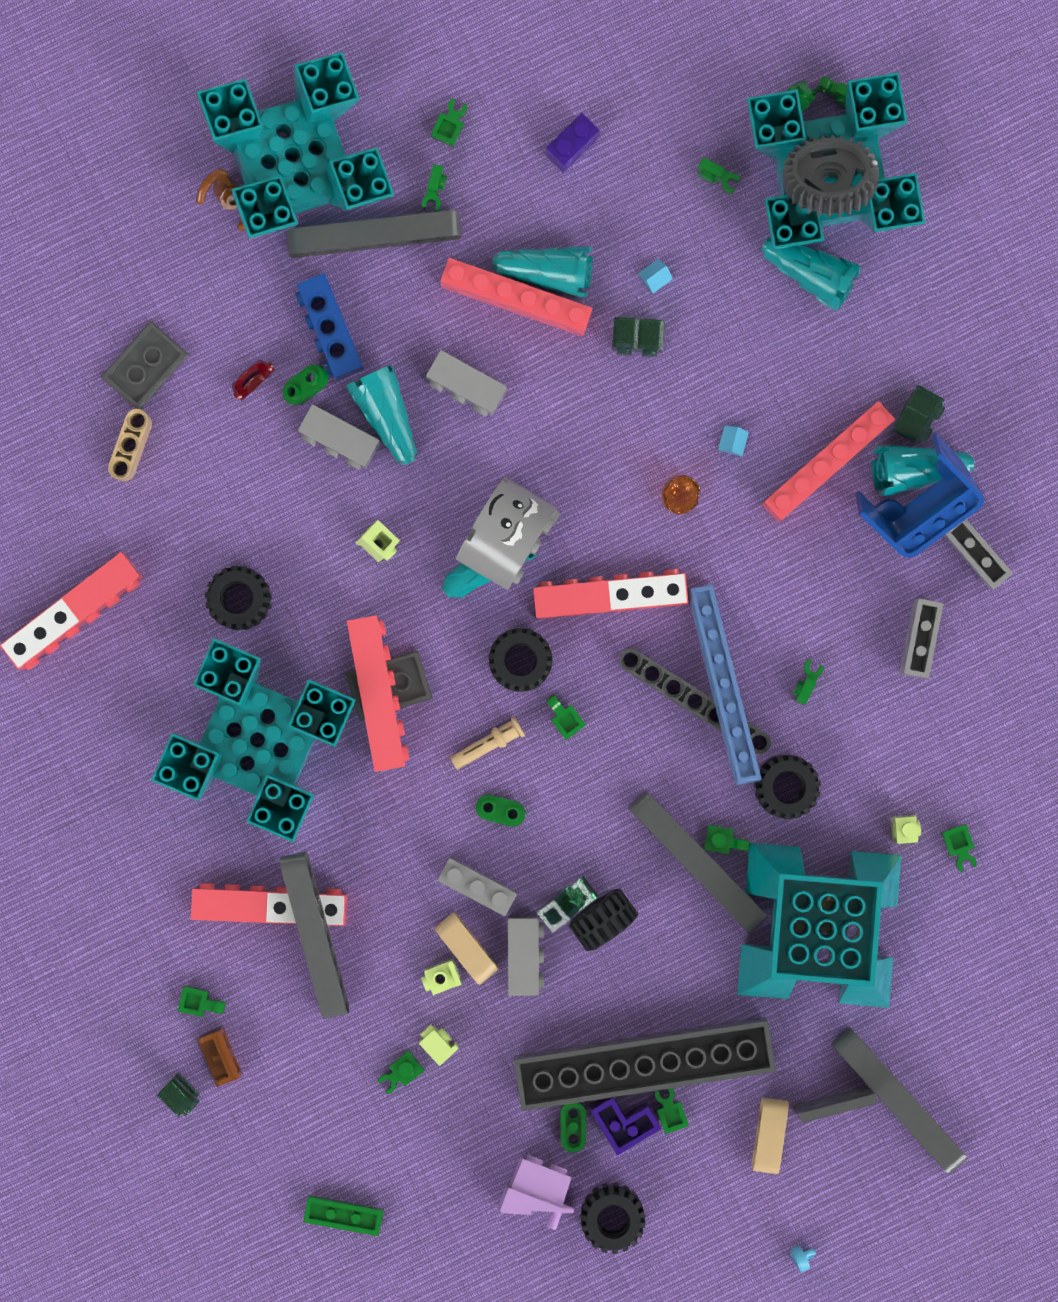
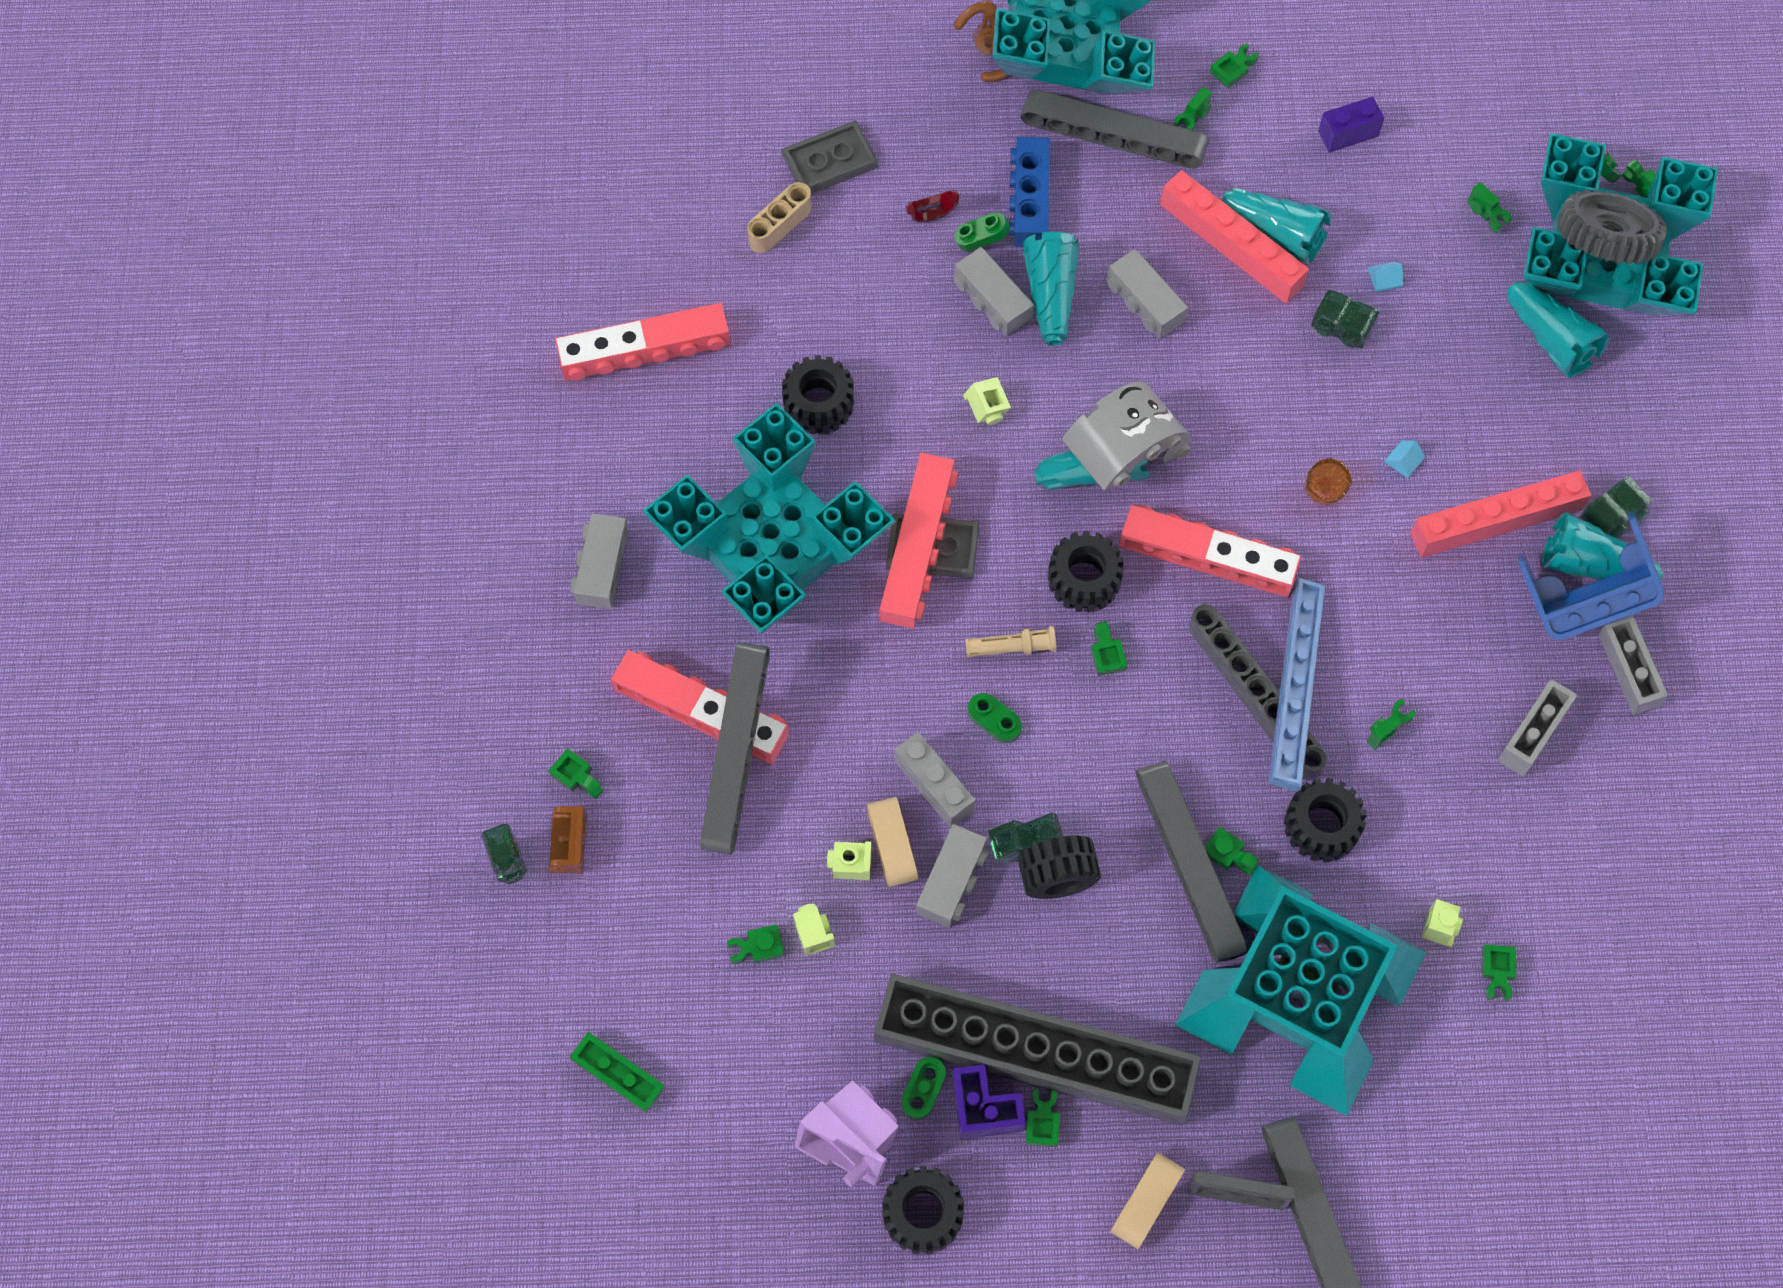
camera: 30 degrees right, 20 degrees down
(132, 819) = (600, 561): none -> light grey brick

